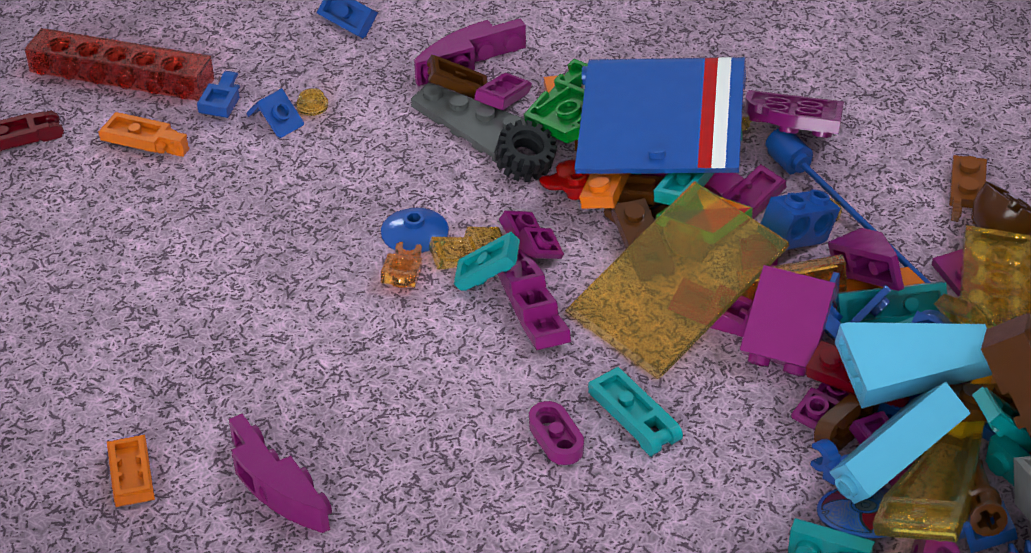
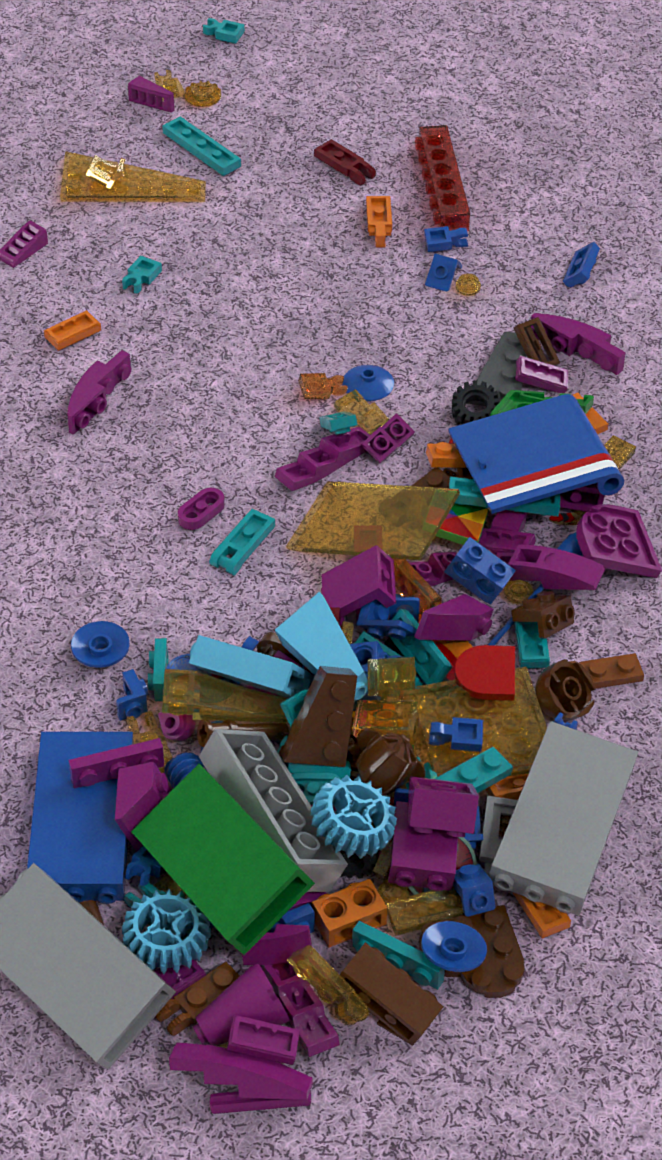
camera: 65 degrees right, 5 degrees up
(71, 367) = (141, 271): none -> teal plate
(828, 160) = (553, 567): none -> magenta slope
(878, 193) = (548, 610): none -> reddish brown bracket
(908, 222) = (531, 648): none -> teal plate
(970, 253) = (487, 672): none -> red tile

